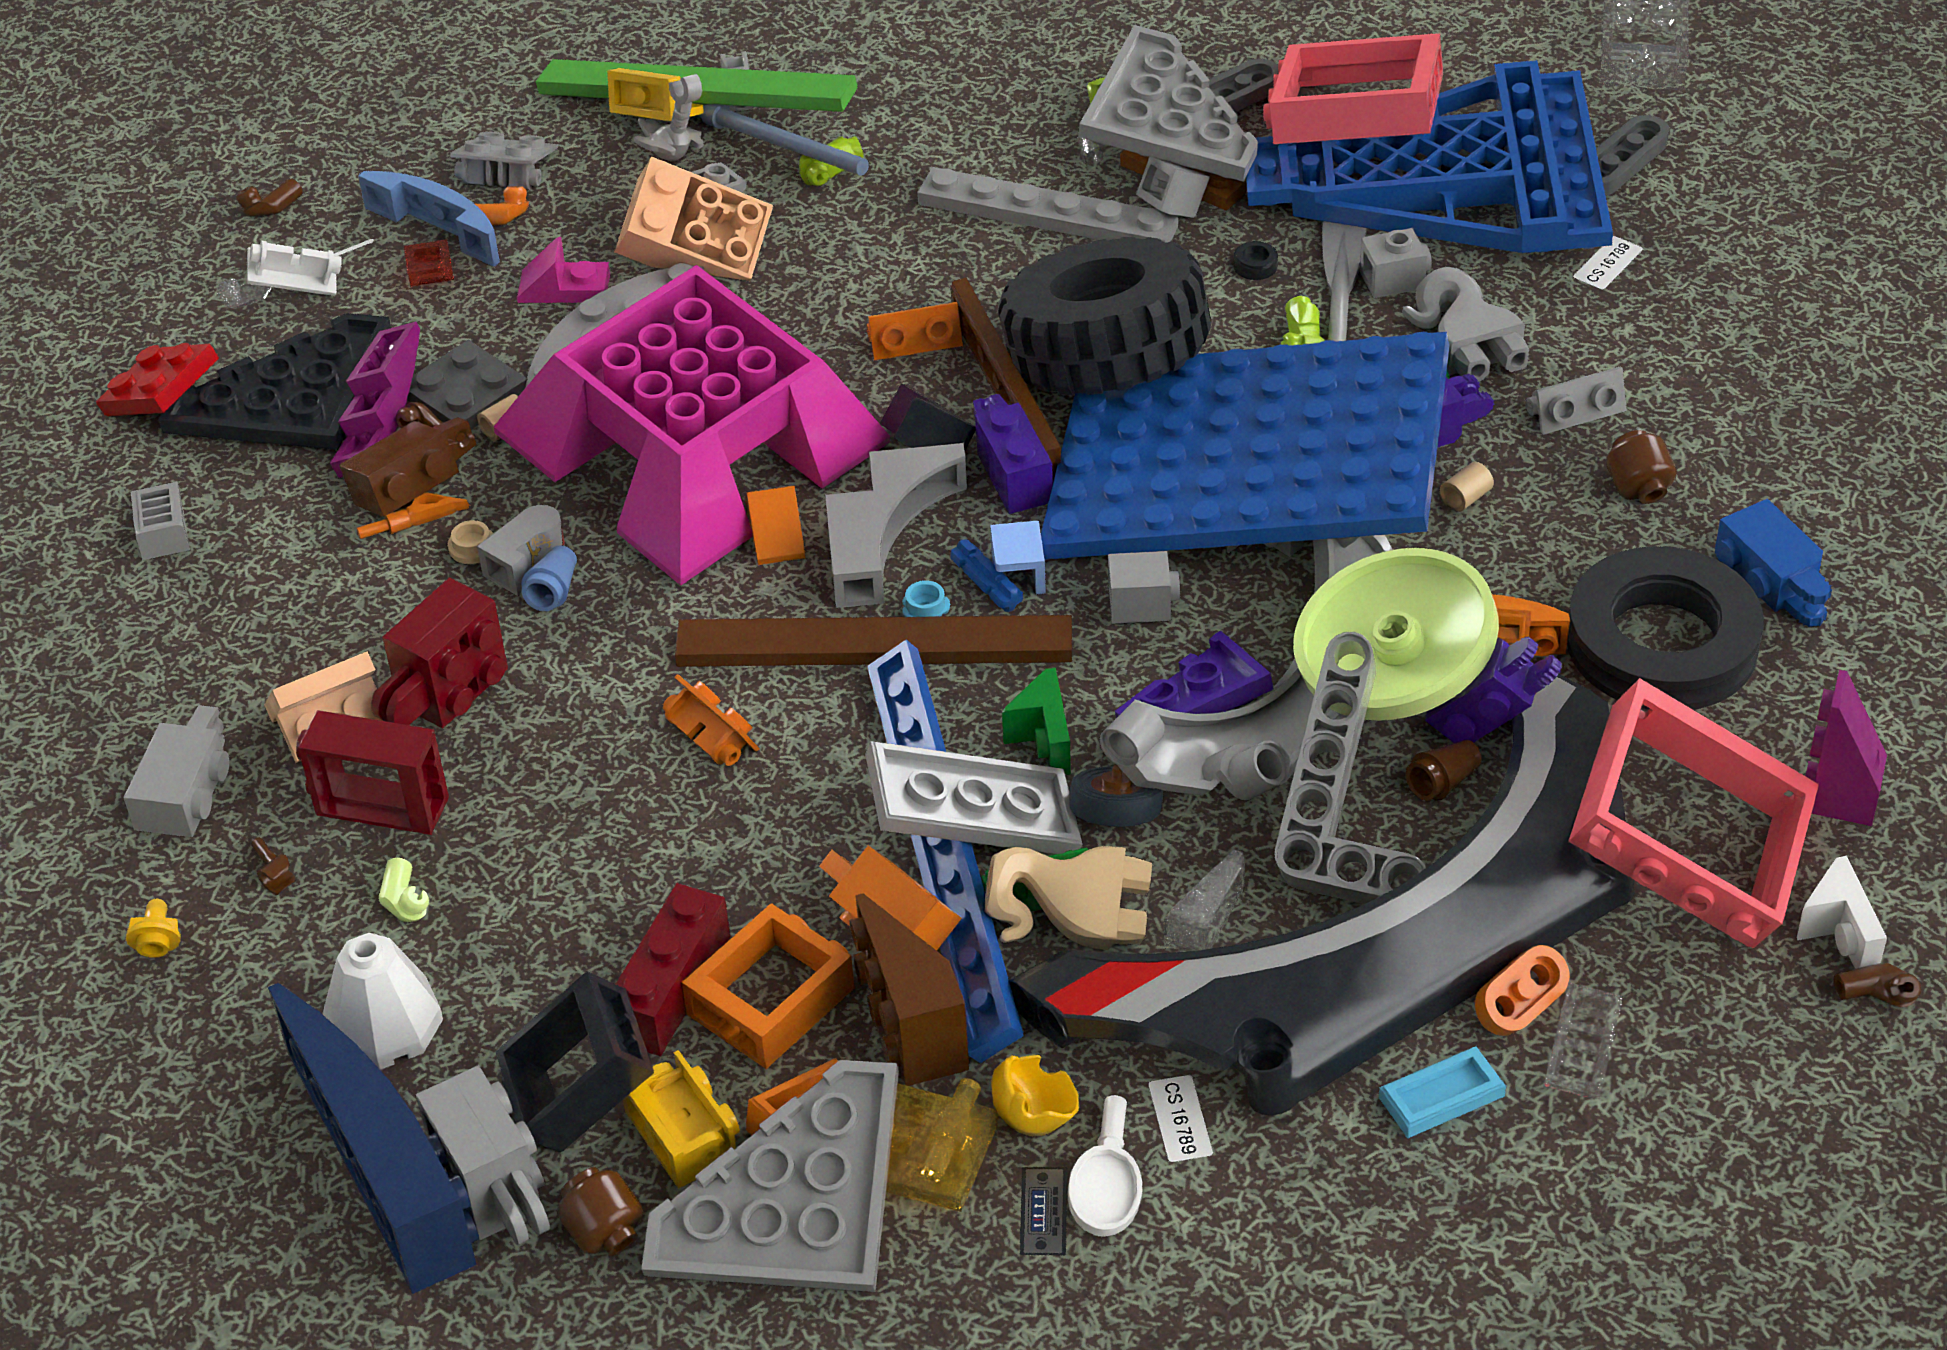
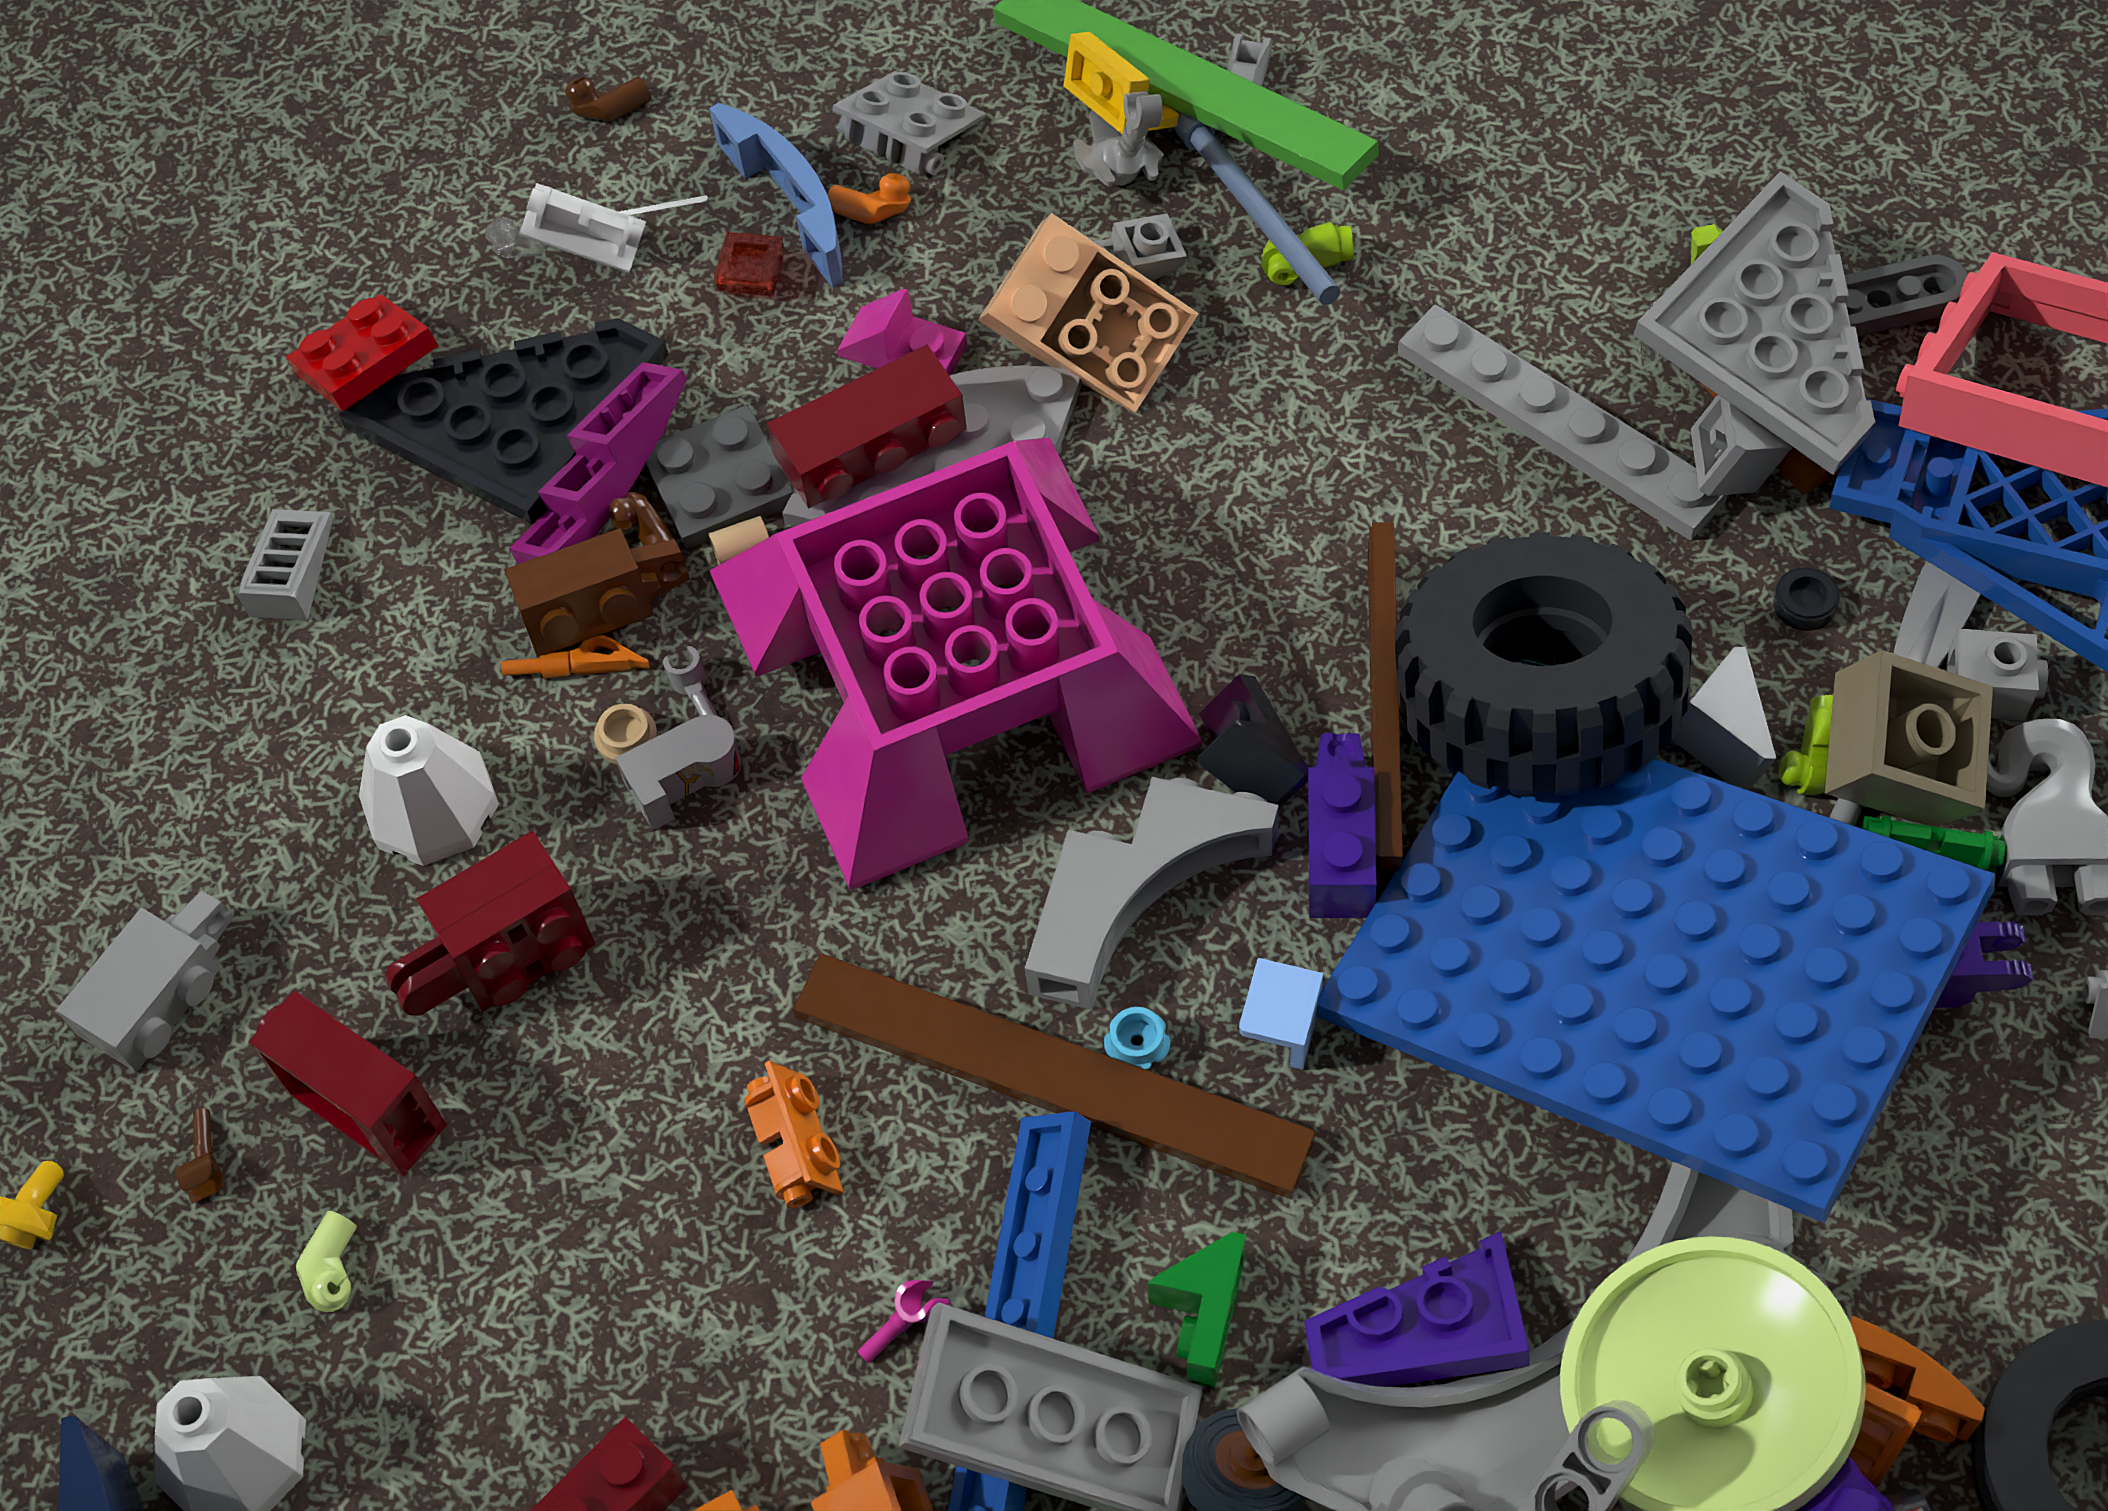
camera: 25 degrees right, 15 degrees up
(336, 689) = (344, 941): light nougat bracket -> none
(337, 605) = (424, 791): none -> white cone
(500, 502) = (691, 682): none -> light grey hand
(549, 579) = (691, 829): medium blue cone -> none
(566, 313) = (868, 426): none -> dark red brick
(775, 525) = (1001, 833): orange slope -> none
(840, 793) = (907, 1312): none -> dark pink hand
(914, 331) = (1302, 577): orange hinge -> none
(984, 575) = (1224, 978): blue axle -> none
(1141, 587) = (1419, 1128): light grey brick -> none
(1237, 324) = (1728, 724): none -> light grey slope
(1357, 293) = (1909, 739): none -> dark tan slope
(1466, 486) = (1940, 1102): tan hinge -> none

